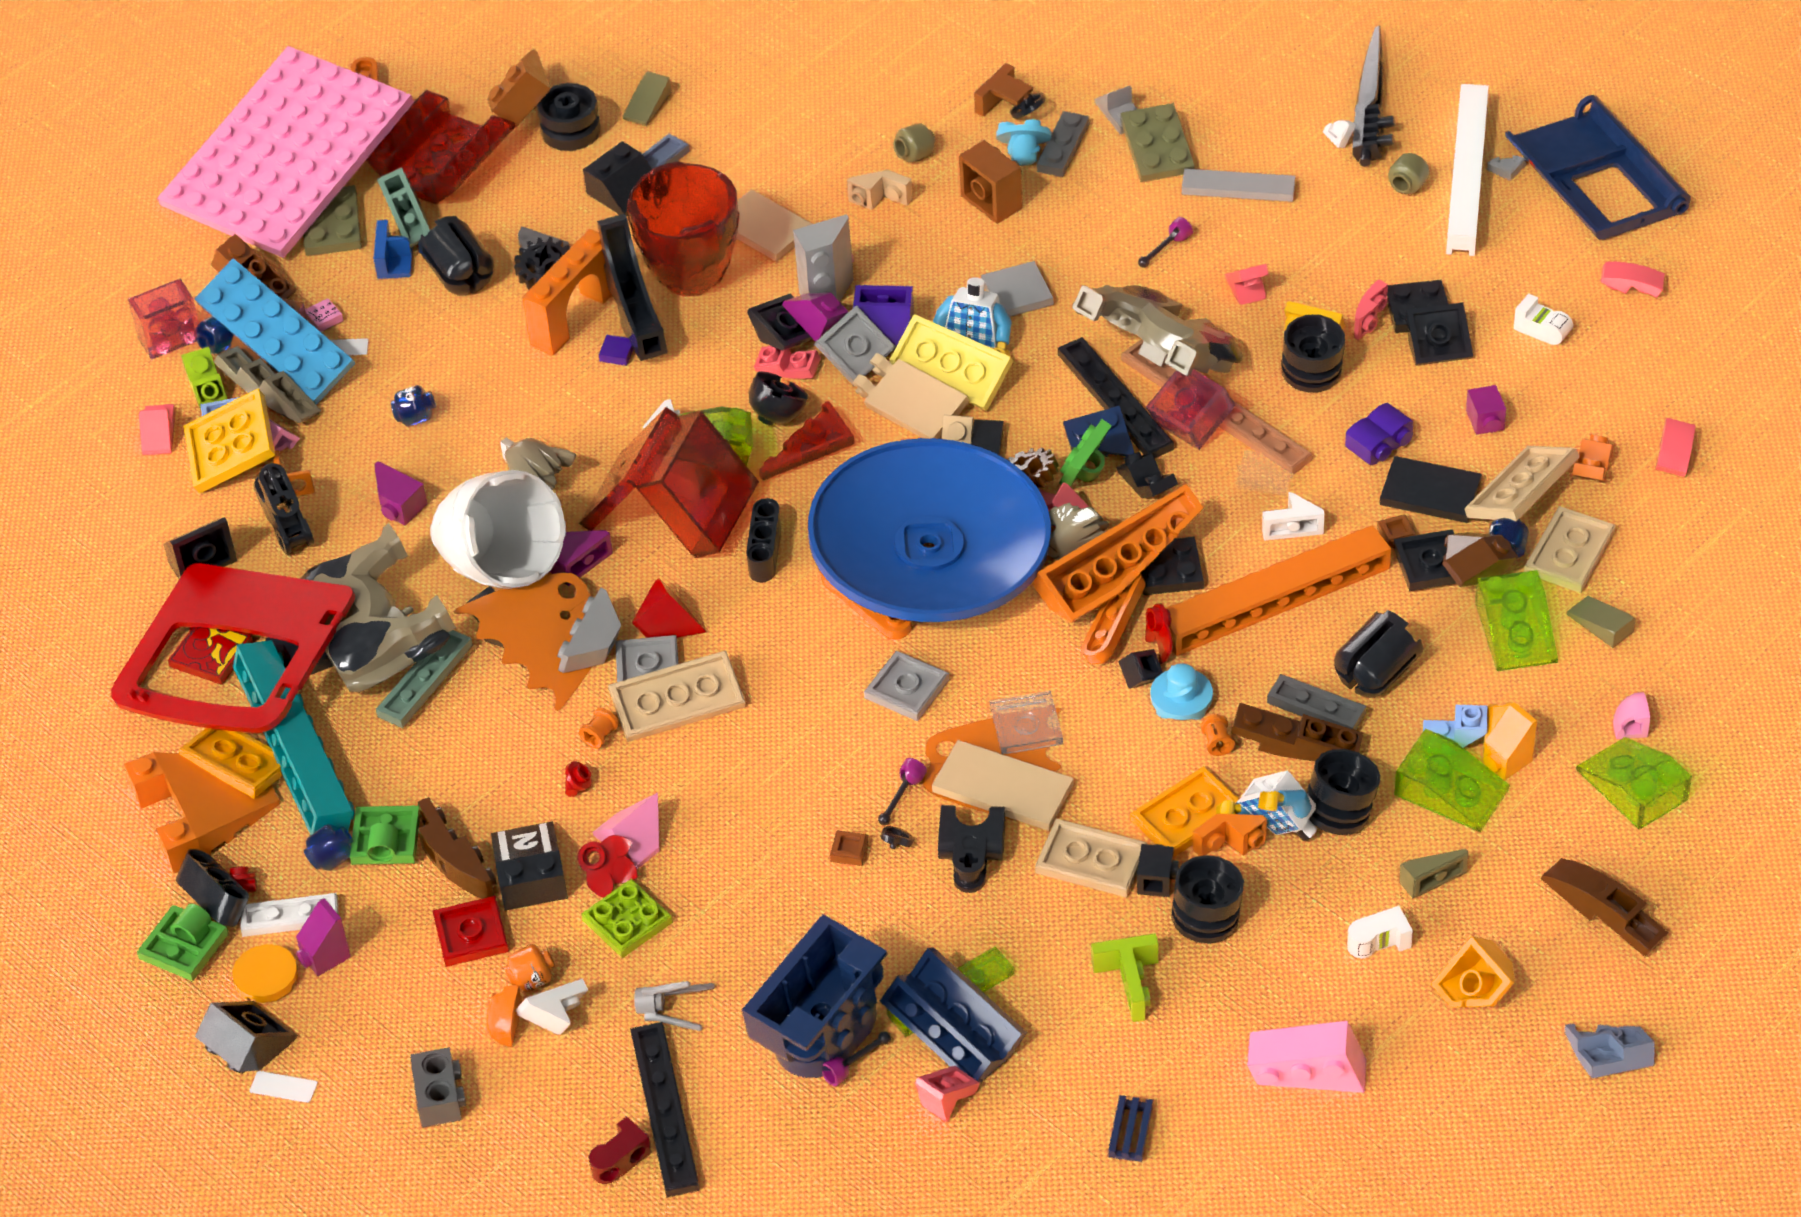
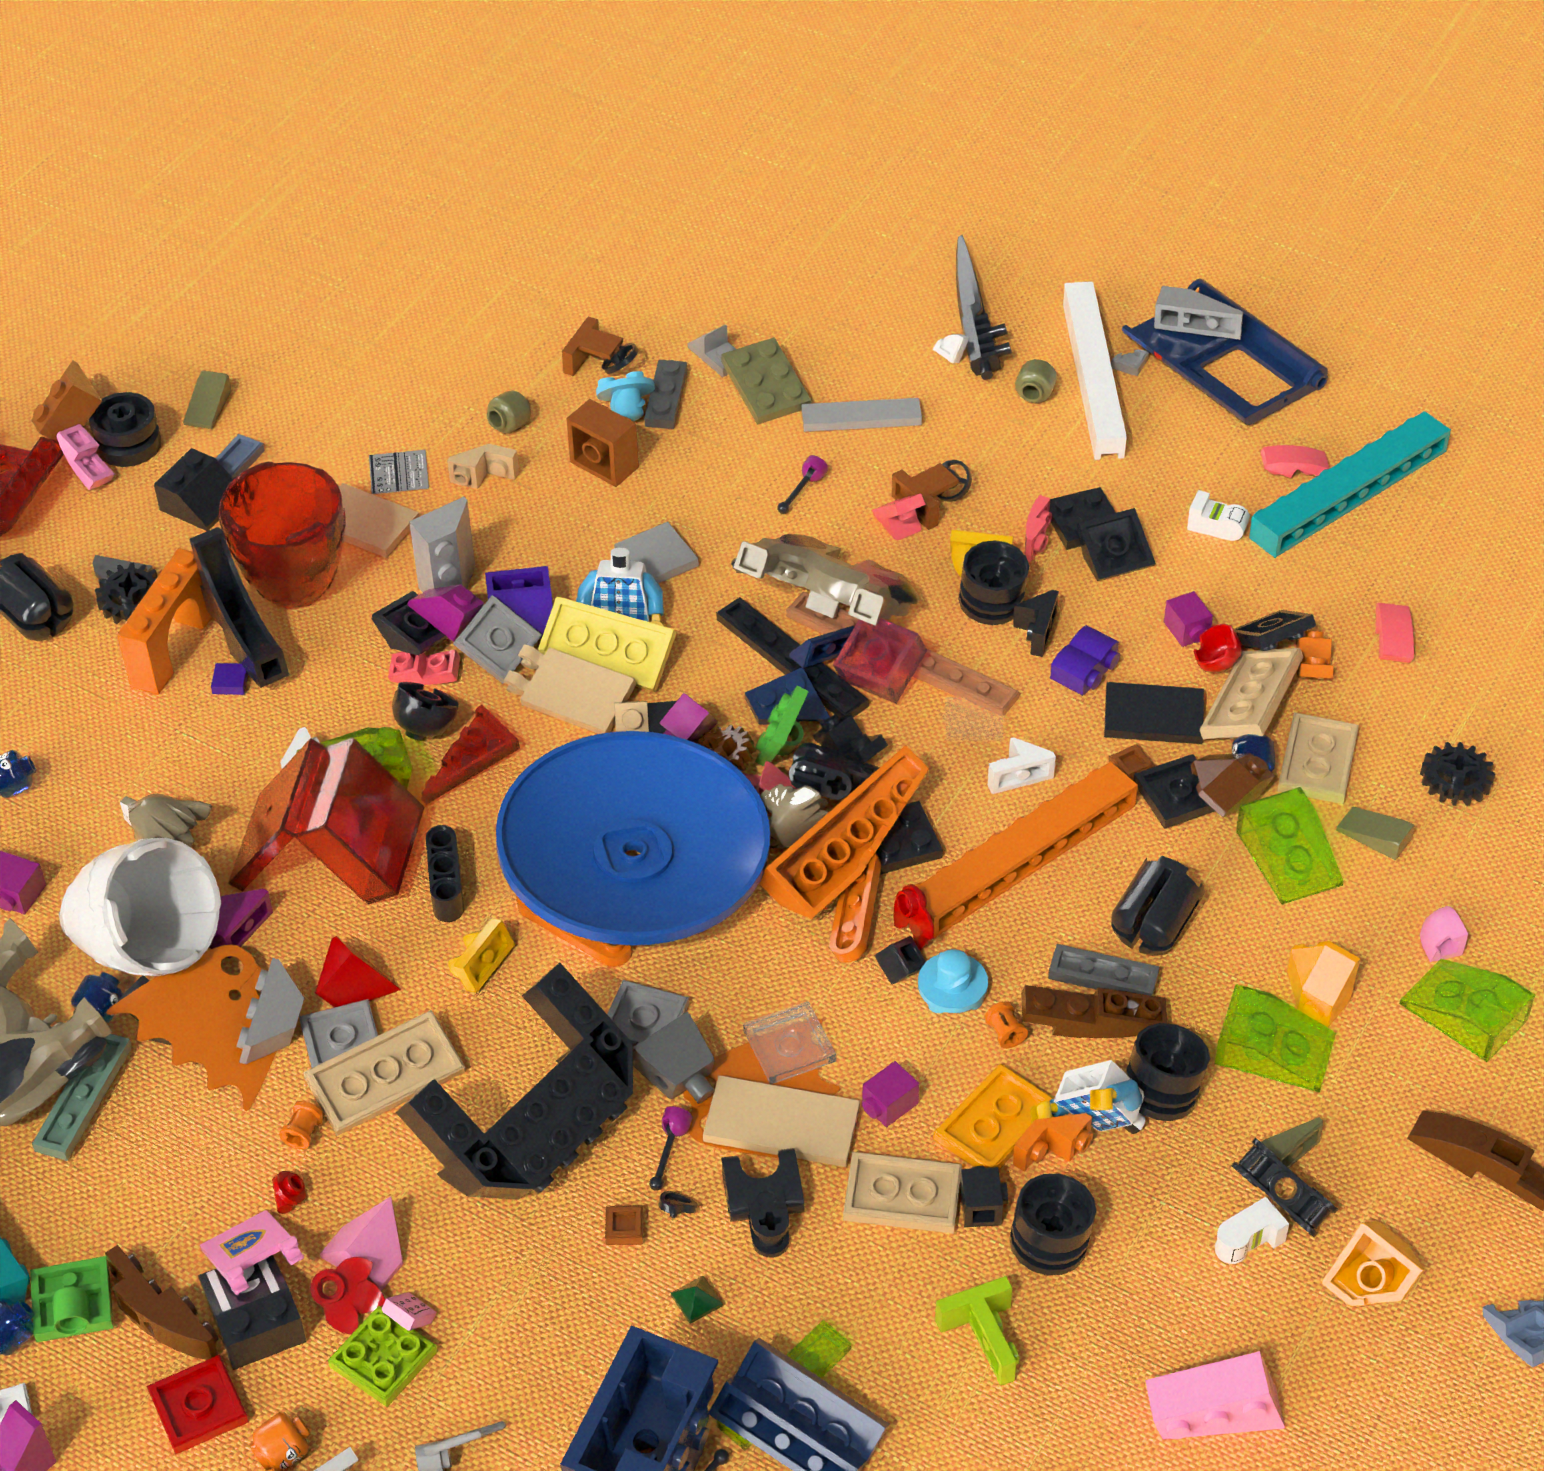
camera: 15 degrees left, 0 degrees up
(453, 596) = (100, 992): none -> clear blue head
(525, 135) = (81, 454): none -> bright pink slope
(534, 815) = (248, 1245): none -> bright pink flag
(654, 886) = (408, 1311): none -> bright pink tile
(781, 612) = (483, 954): none -> yellow tile
(803, 749) = (550, 1119): none -> black wedge
(804, 185) = (398, 471): none -> light grey sticker
(895, 915) = (696, 1299): none -> dark green slope
(923, 720) = (676, 1059): none -> dark grey torso
(1004, 437) = (687, 720): none -> magenta slope
(1100, 776) = (890, 1094): none -> magenta brick
(1114, 497) = (827, 771): none -> black piece
(1138, 391) = (821, 647): none -> dark blue slope
(1280, 256) = (930, 484): none -> dark orange piece
(1347, 392) = (1038, 618): none -> black slope
(1403, 886) = (1303, 1198): none -> black piece
(1468, 725) = (1275, 974): light blue slope -> none
(1506, 440) = (1218, 649): none -> red hair
(1552, 430) = (1275, 627): none -> black plate
(1577, 127) = (1195, 313): none -> light grey slope
(1678, 306) = (1349, 484): none -> teal brick
(1691, 579) = (1457, 773): none -> black gear

